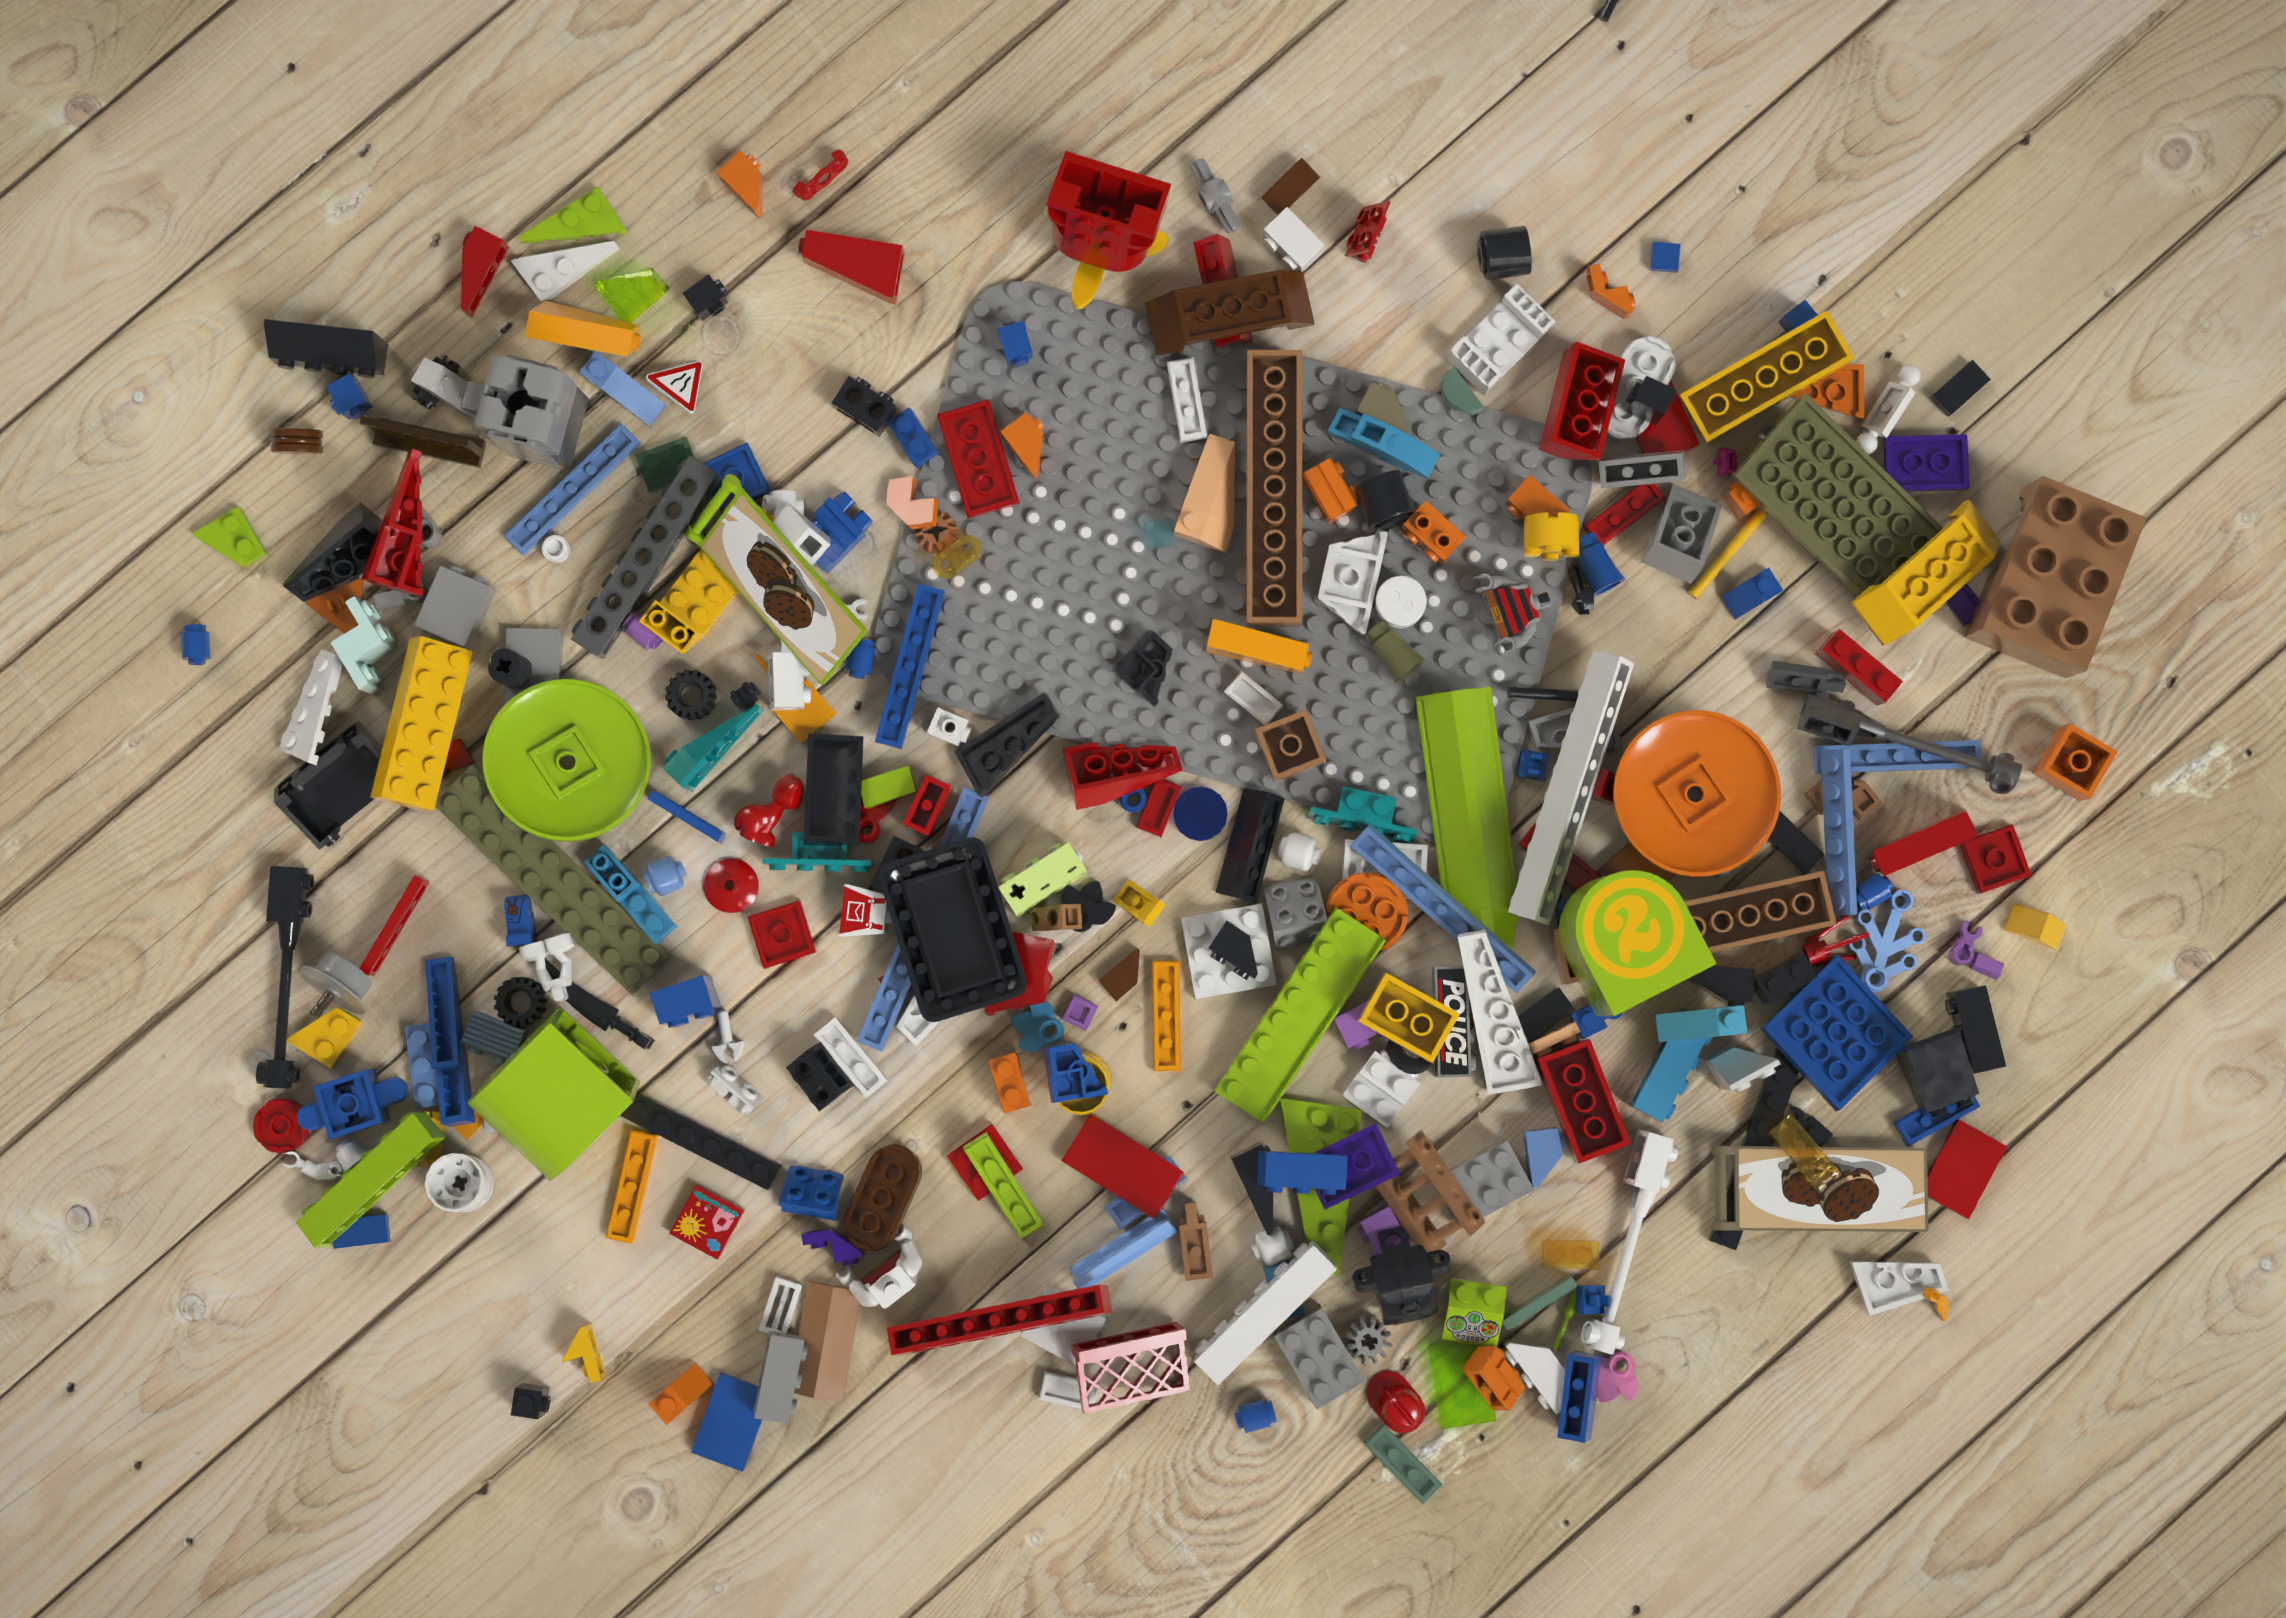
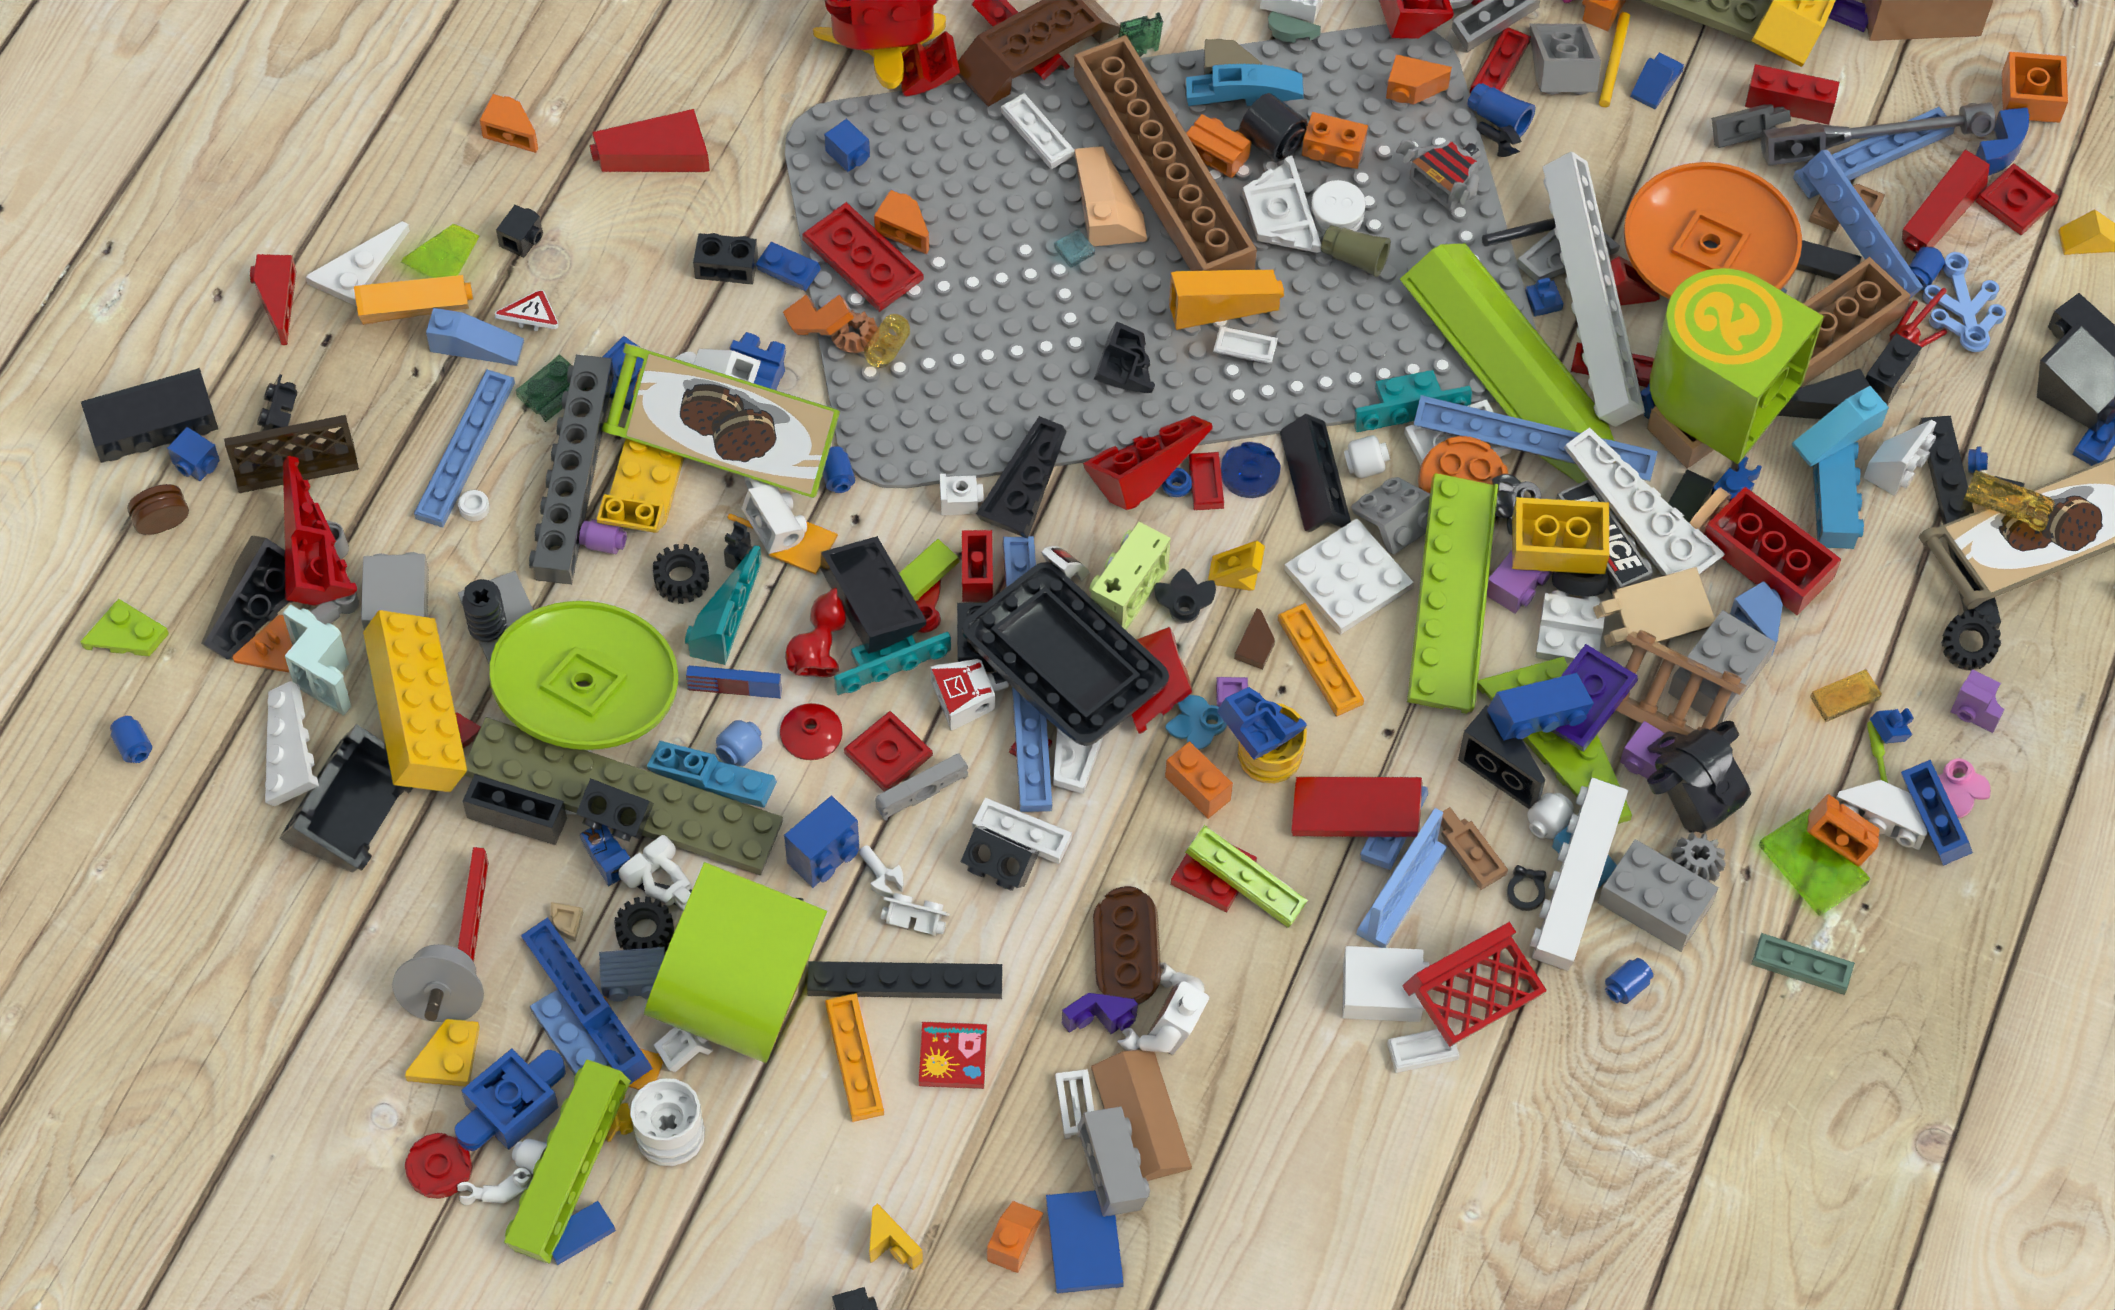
camera: 30 degrees left, 25 degrees down
(289, 908) = (350, 949): black bar -> none
(441, 383) = (293, 395): white brick -> none
(462, 854) = (515, 809): none -> black brick
(466, 962) = (566, 919): none -> tan tile
(528, 410) = (393, 367): light grey piece -> none
(537, 895) = (617, 803): none -> black brick
(584, 217) = (360, 216): lime wing -> none
(791, 981) = (921, 786): none -> light grey piece
(811, 188) = (575, 106): red piece -> none
(811, 1192) = (1051, 976): blue bracket -> none
(910, 666) = (892, 454): blue plate -> none
(999, 838) = (1065, 562): none -> white slope
(999, 1320) = (1315, 990): red brick -> none
(1057, 917) = (1161, 608): medium nougat leg -> none
(1126, 291) = (929, 65): none -> red slope
(1235, 1292) = (1519, 874): none -> black piece
(1236, 948) = (1357, 558): black slope -> none
(1290, 746) = (1305, 363): medium nougat brick -> none
(1316, 348) = (1143, 32): none -> clear green plate
(1395, 950) = (1508, 489): none -> black plate
(1395, 1402) = (1760, 910): red piece -> none
(1457, 1110) = (1660, 606): none -> tan tile
(1473, 1312) = (1784, 782): lime slope -> none
(1538, 1302) = (1842, 751): sand green tile -> none
(1551, 536) = (1446, 93): yellow brick -> none
(1647, 1175) = (1872, 593): white bar -> none
(1673, 1312) = (1978, 702): none -> medium lavender brick
(1707, 1243) = (1971, 622): none -> black tyre
(1805, 1096) = (1977, 460): none -> blue plate
(1836, 1033) = (1970, 392): blue plate -> none
(1963, 954) = (2042, 284): medium lavender bar -> none
(2028, 796) = (2010, 131): none -> blue brick

